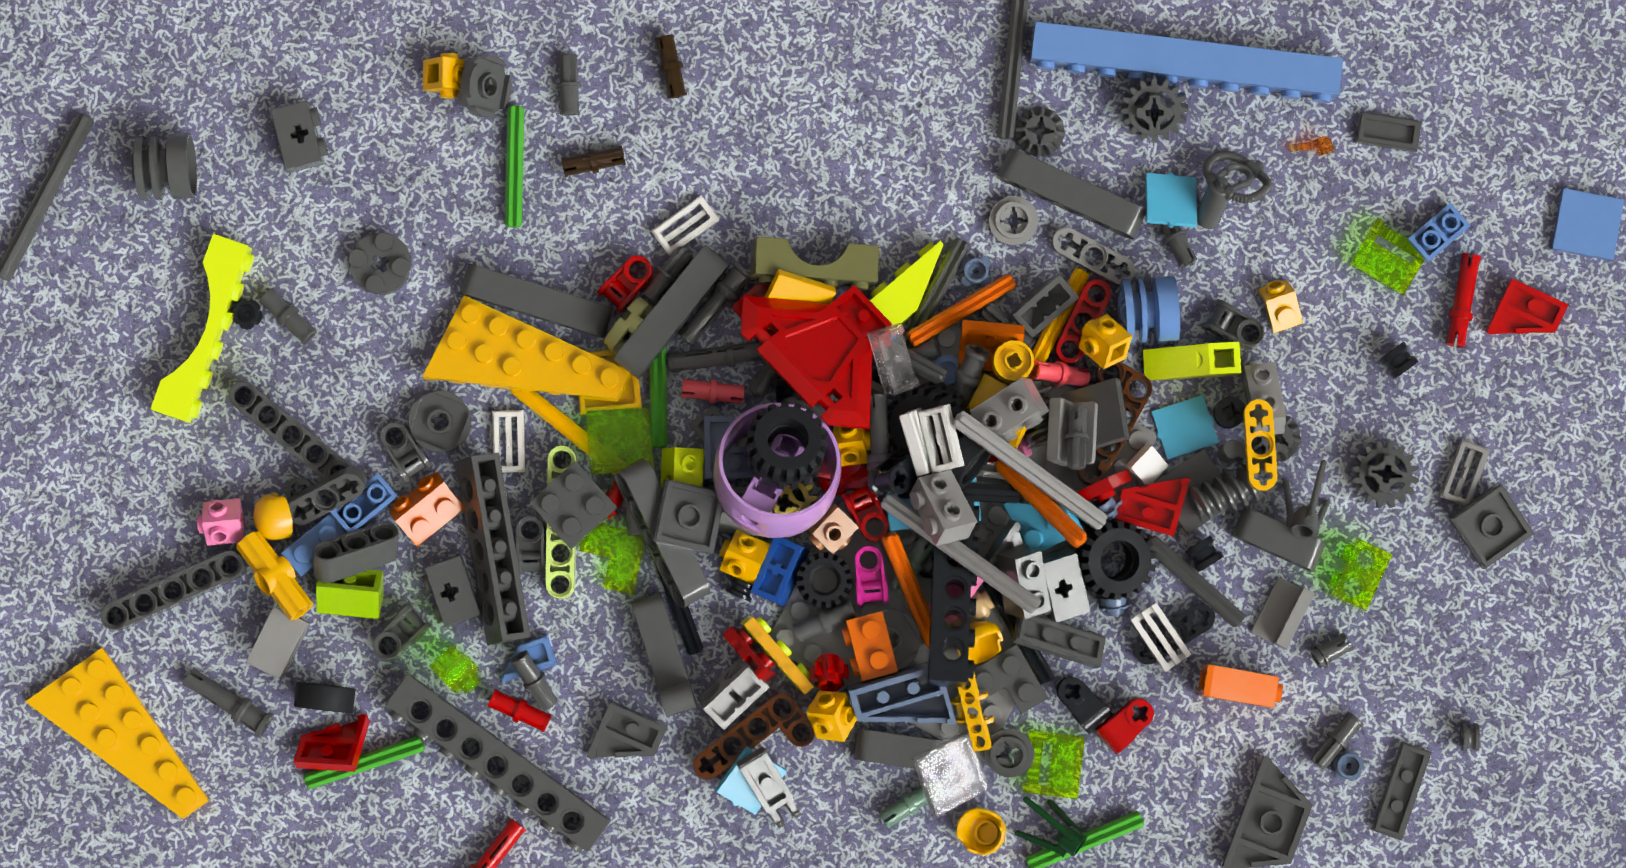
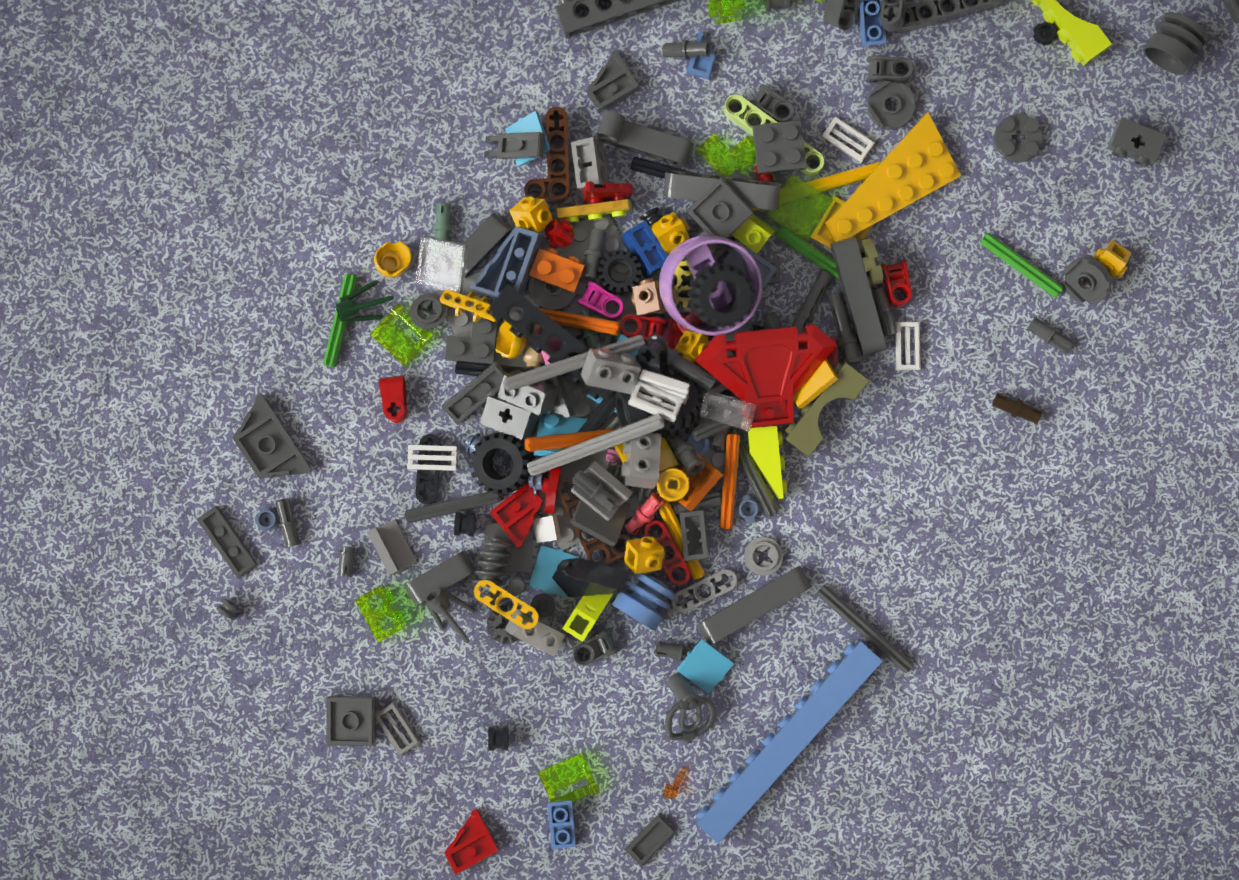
camera: 125 degrees right, 0 degrees up
(288, 316) = (1025, 57): dark grey pin -> none
(425, 508) = (842, 58): bracket -> none
(465, 604) = (765, 36): dark grey brick -> none
(493, 548) = (787, 80): dark grey brick -> none
(519, 710) = (674, 28): red pin -> none
(536, 300) = (925, 217): dark grey beam -> none
(593, 161) = (990, 316): dark brown pin -> none
(712, 391) = (789, 288): coral pin -> none
(1028, 140) = (808, 603): dark grey gear -> none
(1086, 707) = (422, 380): black piece -> none
(1166, 108) = (766, 705): dark grey gear -> none
(1169, 381) = (589, 578): none -> black slope
(1239, 686) = (365, 485): orange slope -> none
(1281, 305) = (587, 688): yellow bracket -> none
(1387, 460) = (424, 667): dark grey gear -> none
(1463, 299) = (507, 809): red pin -> none

